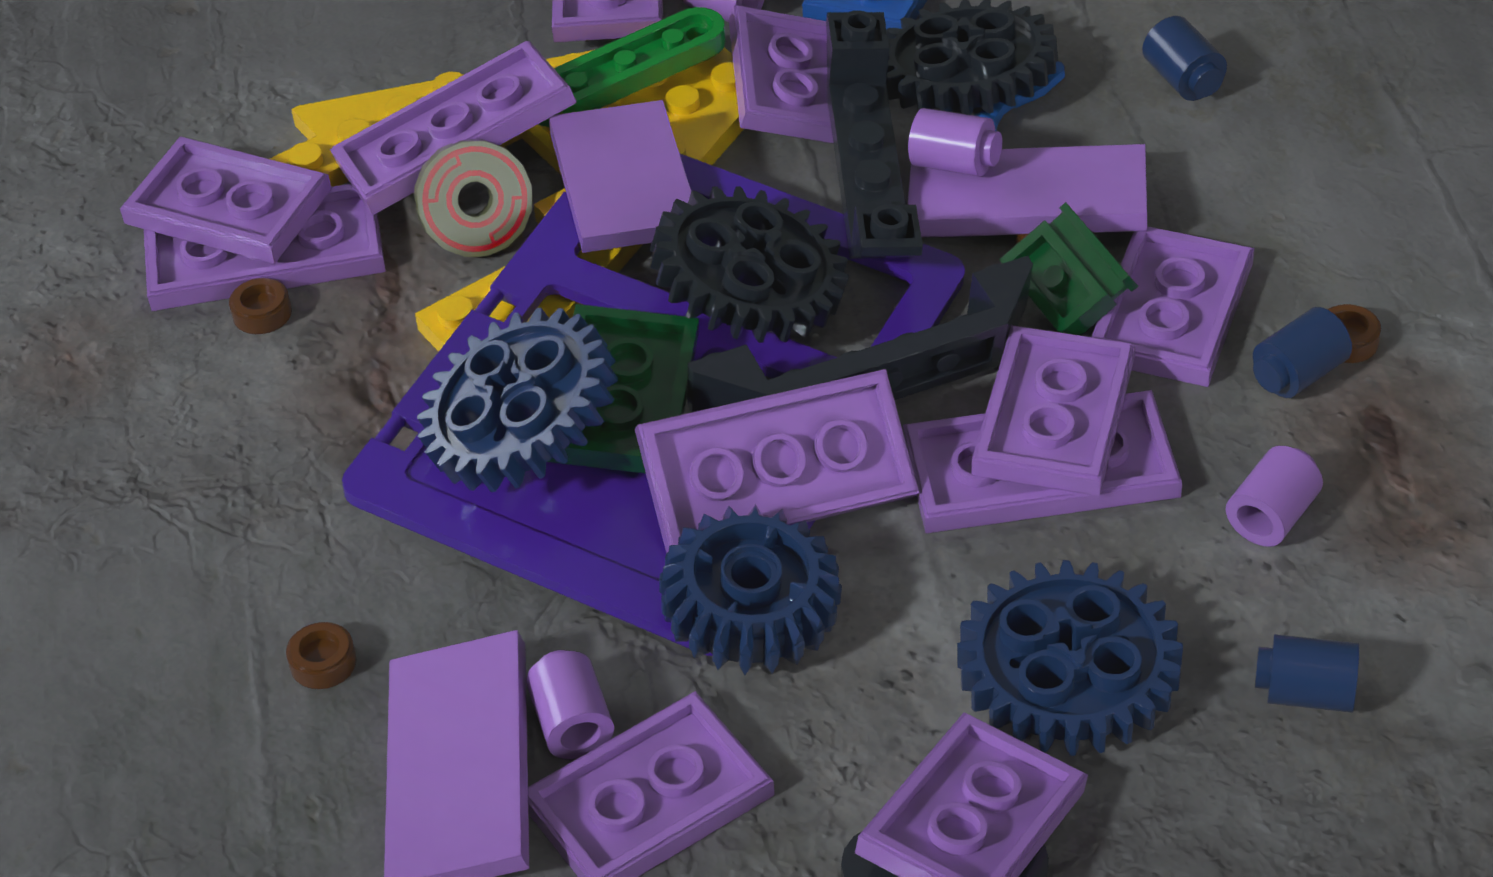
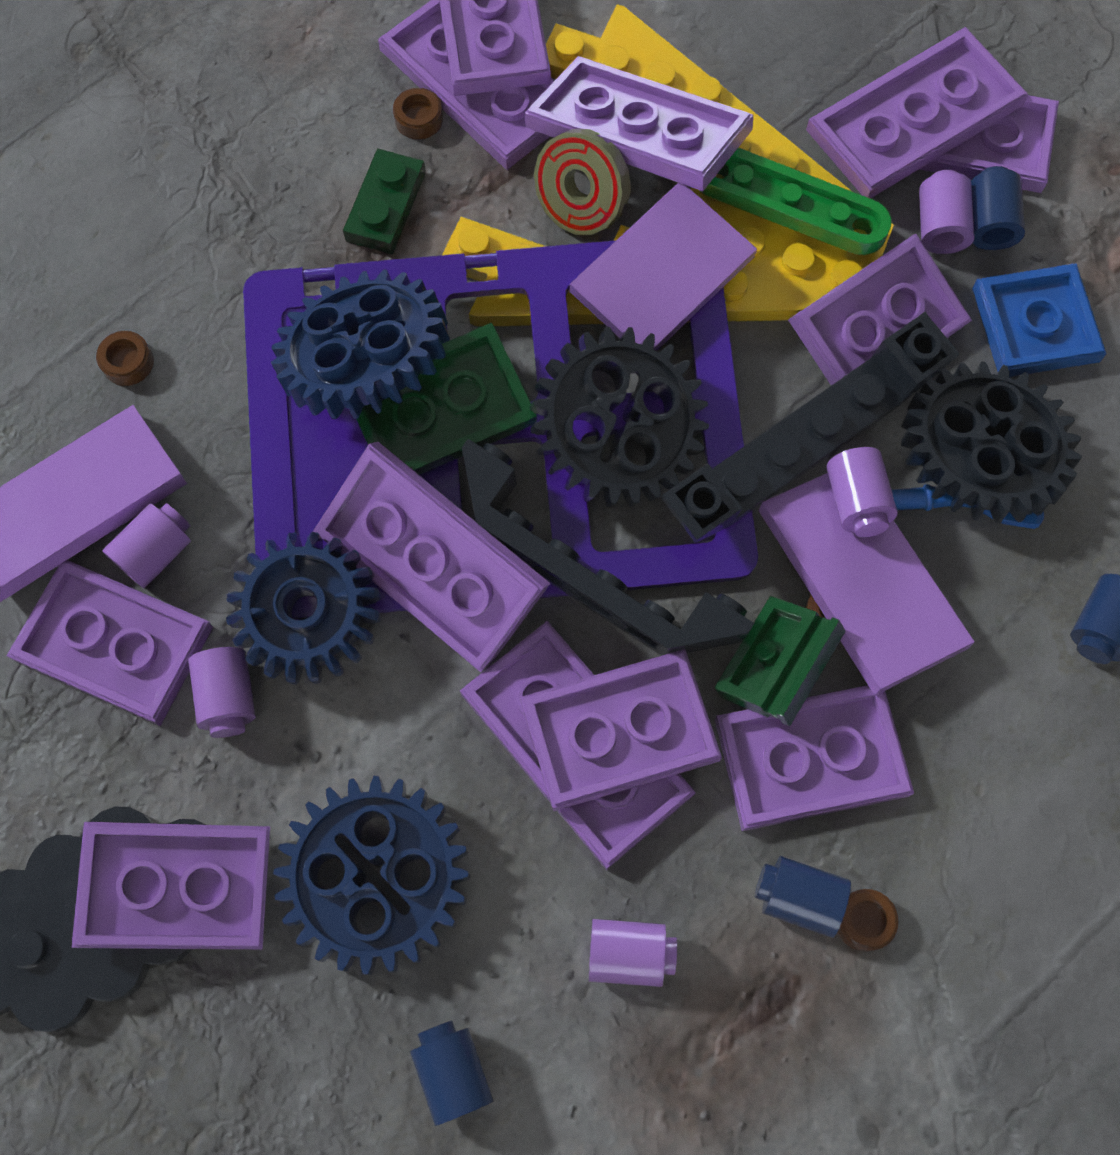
camera: 55 degrees right, 25 degrees up
(337, 370) = (384, 201): none -> dark green plate
(785, 702) = (221, 691): none -> medium lavender brick

